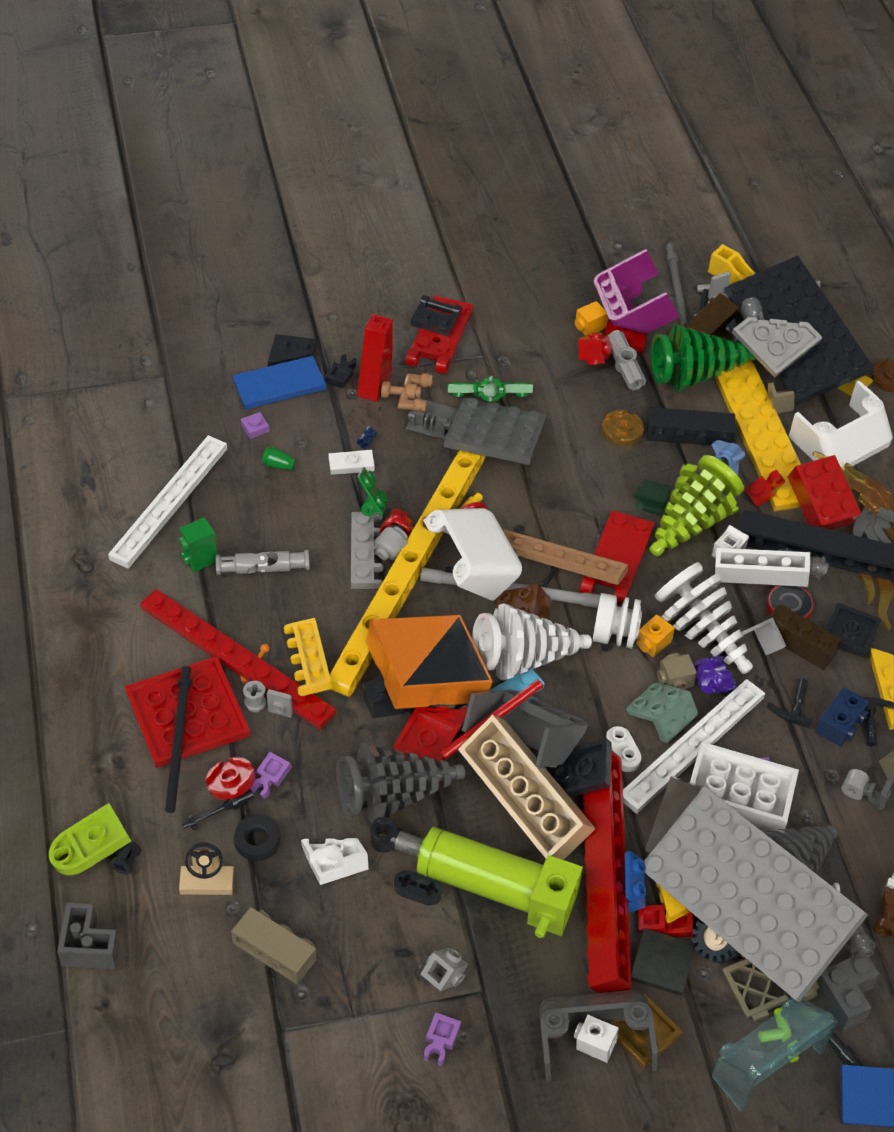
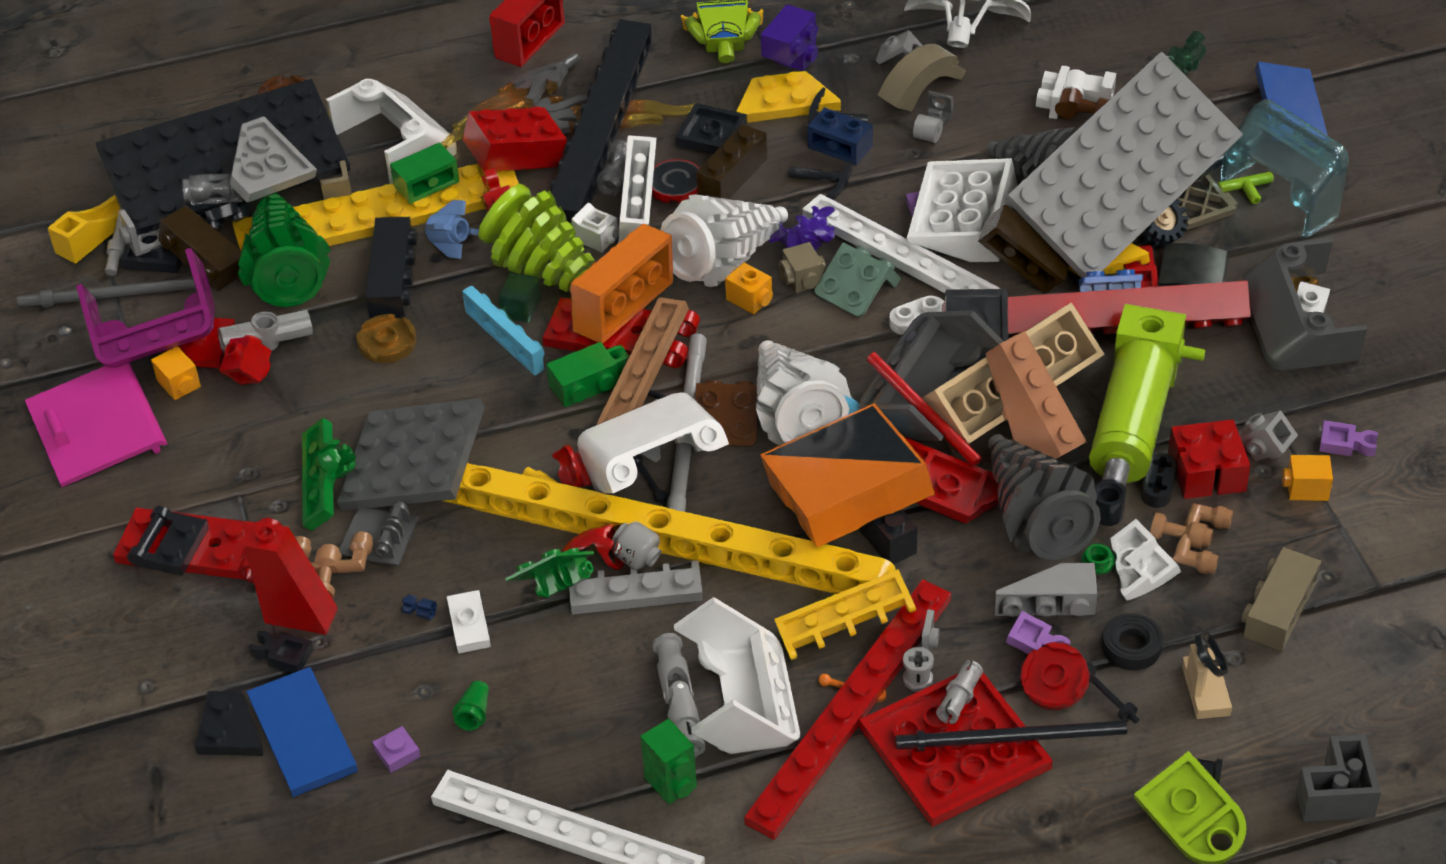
camera: 90 degrees left, 5 degrees down
(219, 710) = (959, 692): none -> light grey pin
(255, 607) = (752, 678): none -> white windscreen
(310, 795) = (1055, 591): none -> light grey slope
(343, 823) = (1100, 556): none -> green plate
(352, 898) = (1194, 535): none -> medium nougat piece
(399, 995) = (1308, 477): none -> light orange brick
(428, 921) = (1202, 450): none -> red piece
(480, 796) = (1031, 399): none -> nougat wedge
(553, 285) = (95, 422): none -> dark pink container
(569, 528) = (586, 372): none -> green brick
(617, 620) = (741, 312): white wheel -> none
(618, 487) = (503, 330): none -> medium azure plate
(644, 542) = (622, 283): none -> orange brick
(768, 636) = (738, 187): light grey bracket -> none
(783, 440) = (424, 172): none -> green brick

